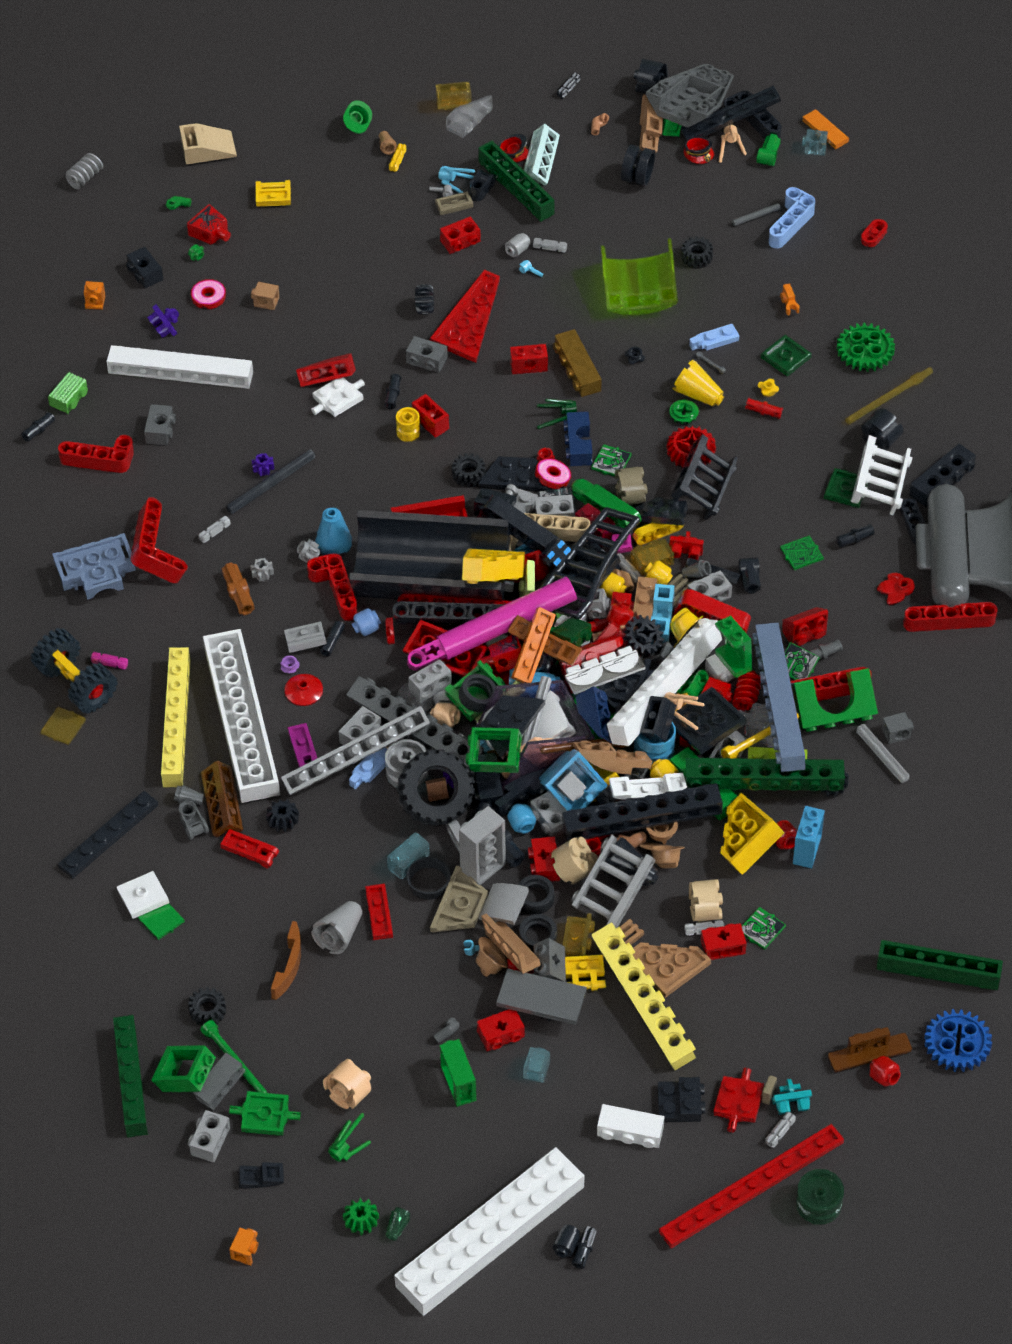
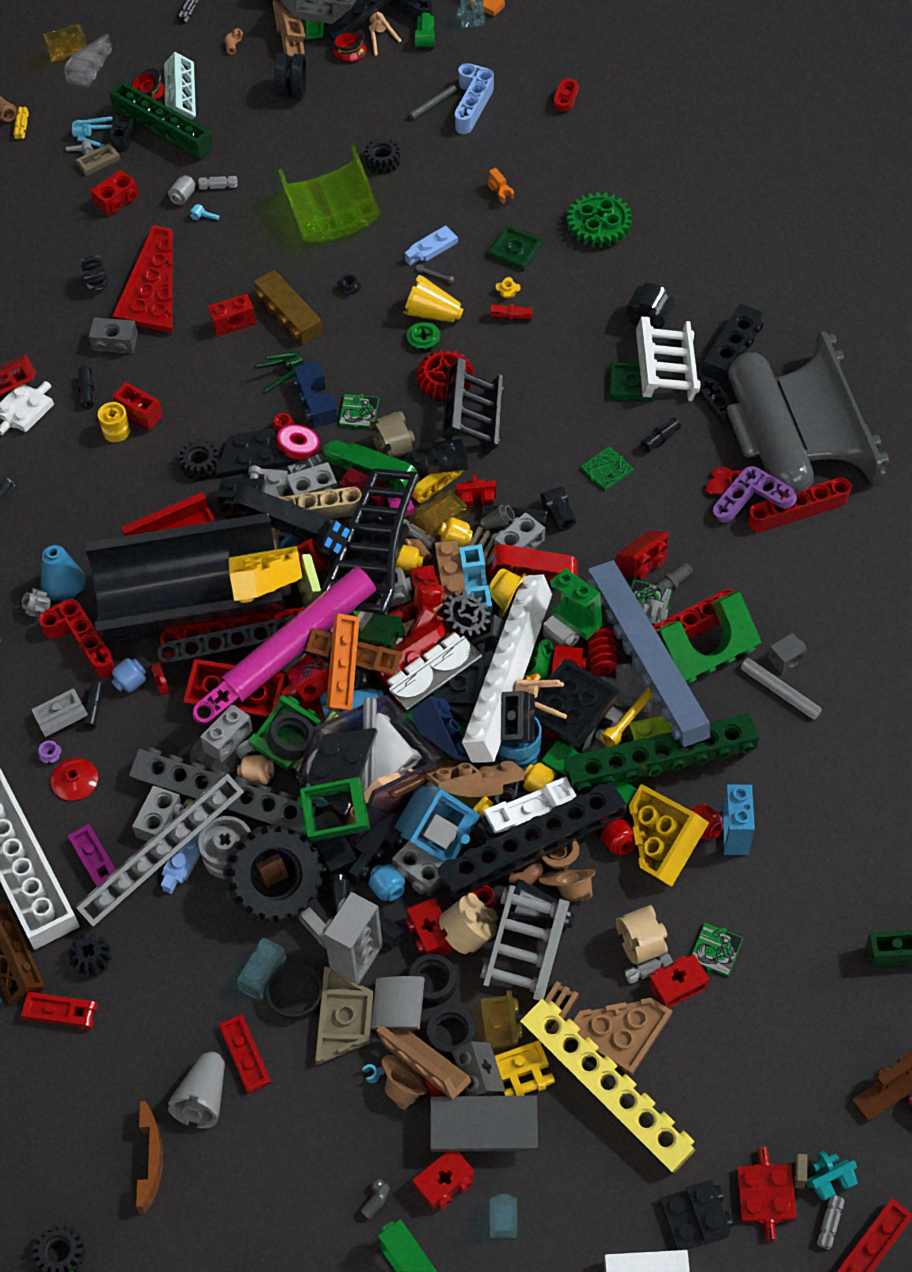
camera: 15 degrees left, 5 degrees up
(712, 829) = (618, 837): none -> red head
(798, 669) = (655, 611): none -> light grey gear
(915, 379) = (664, 243): clear yellow bar -> none
(915, 592) = (754, 486): none -> medium lavender beam

